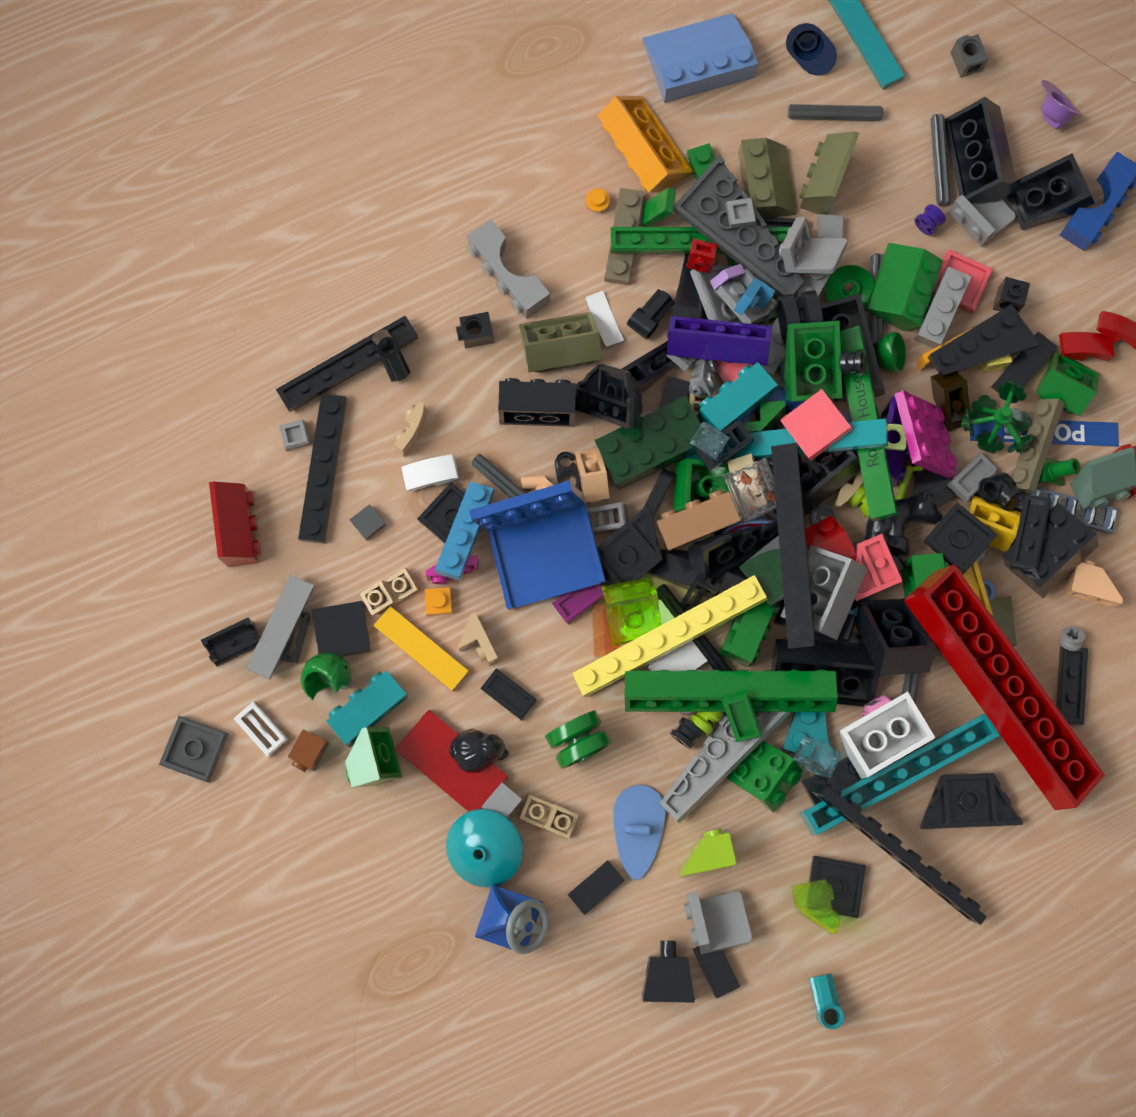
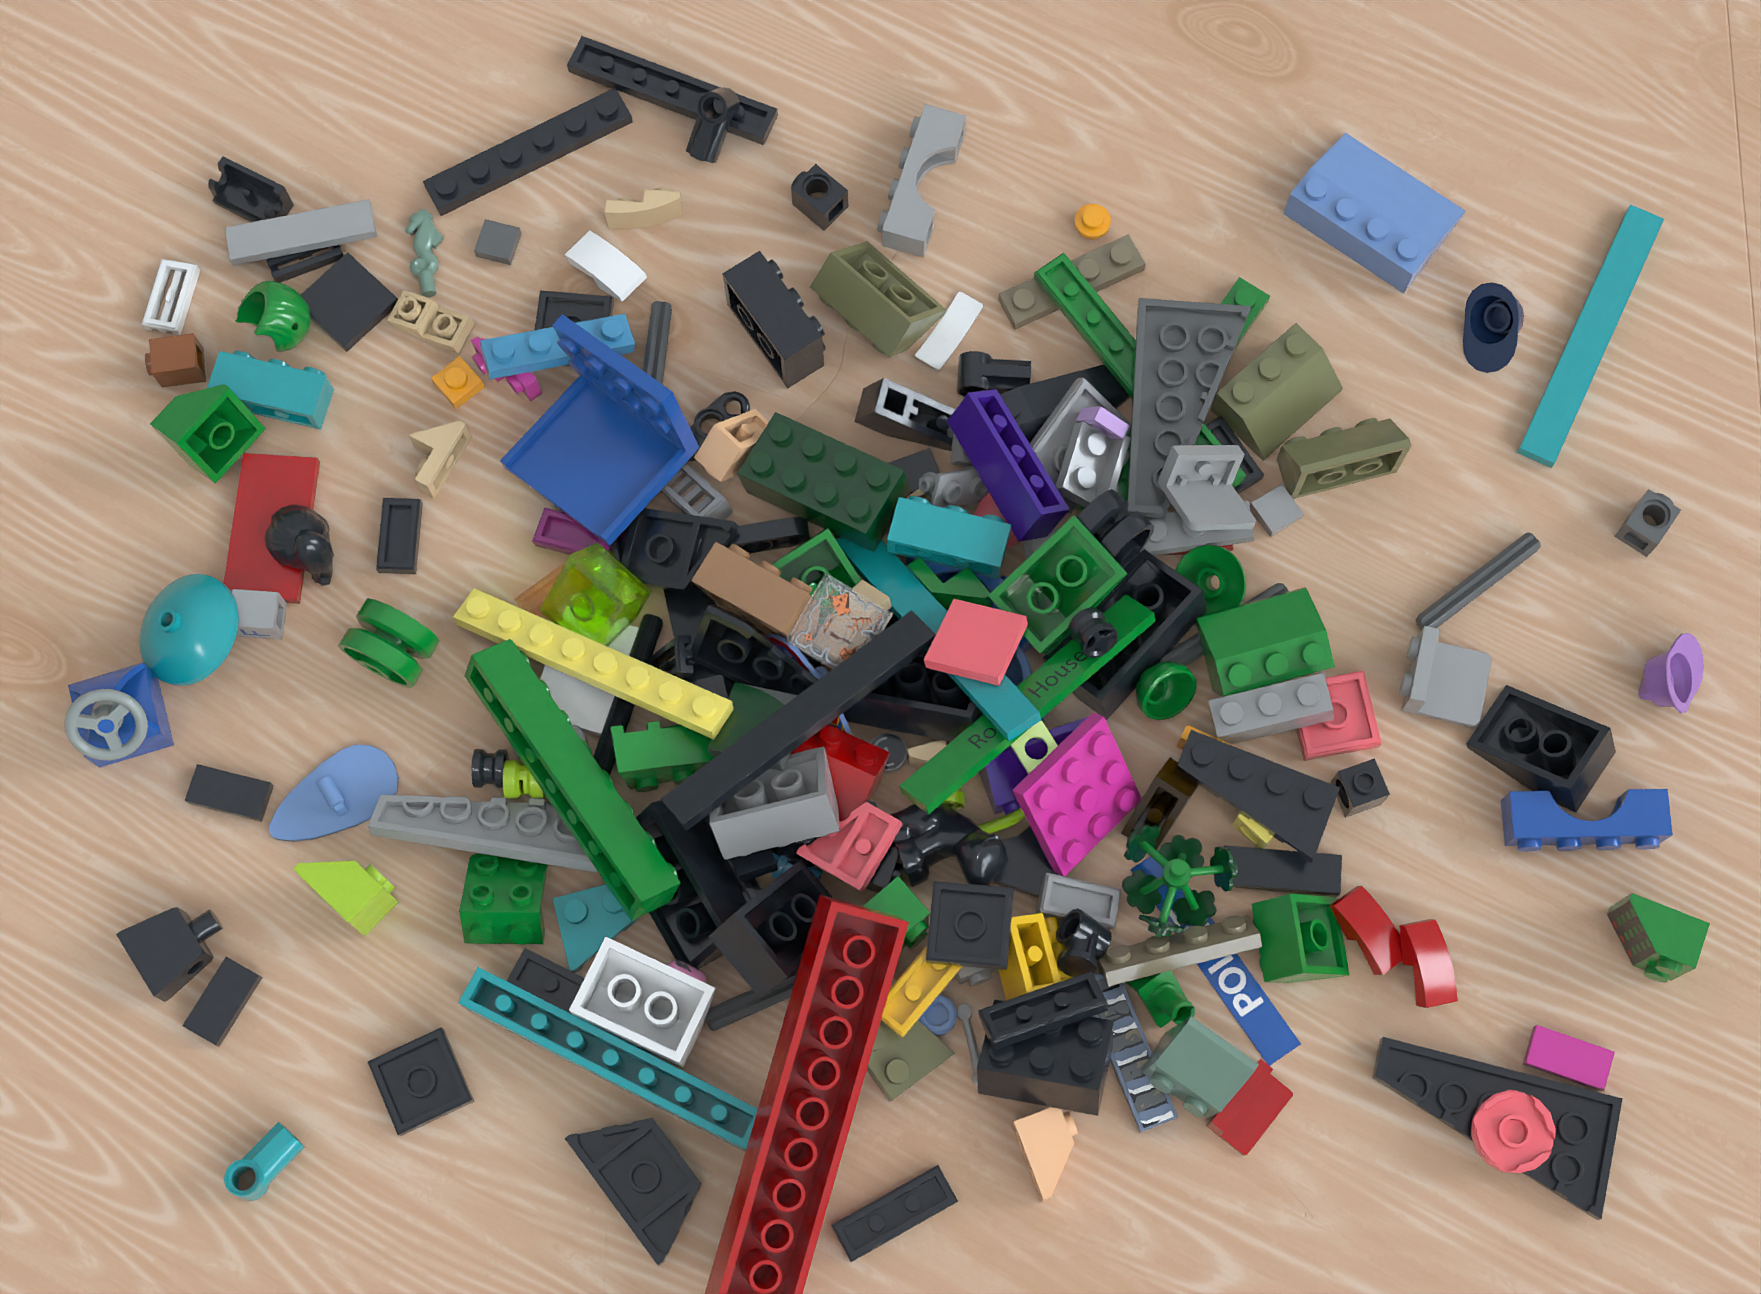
camera: 60 degrees right, 5 degrees down
(193, 749) = (99, 243): dark grey tile -> none
(234, 523) = (385, 97): red slope -> none
(294, 435) = (545, 96): light grey tile -> none
(335, 561) = (425, 239): none -> sand green animal
(421, 648) = (386, 402): yellow tile -> none
(536, 482) = (684, 392): light nougat arm -> none
(548, 816) = (279, 679): tan slope -> none
(610, 396) = (837, 393): black wedge -> none
(644, 143) = (1208, 223): light orange slope -> none
(658, 207) = (1131, 289): green tile -> none
(701, 256) = (1103, 374): red bracket -> none
(709, 440) = (858, 528): clear light blue brick -> none
(718, 921) = (274, 958): light grey bracket -> none
(740, 213) = (1191, 378): light grey tile -> none
(741, 715) = (544, 807): green tile -> none
(742, 433) = (879, 547): black slope -> none
(756, 294) = (1092, 458): dark azure bracket -> none
(814, 903) = (372, 1063): clear neon green slope -> none
(816, 757) = (559, 939): clear light blue brick -> none
(835, 112) = (1435, 415): dark grey axle -> none
(907, 858) = (503, 1137): black plate -> none
(930, 219) = (1383, 621): dark purple wheel -> none
(981, 152) = (1523, 622): black slope -> none
(1030, 593) = (964, 1013): none -> light grey hinge
(1072, 638) = (964, 1165): light grey bush -> none

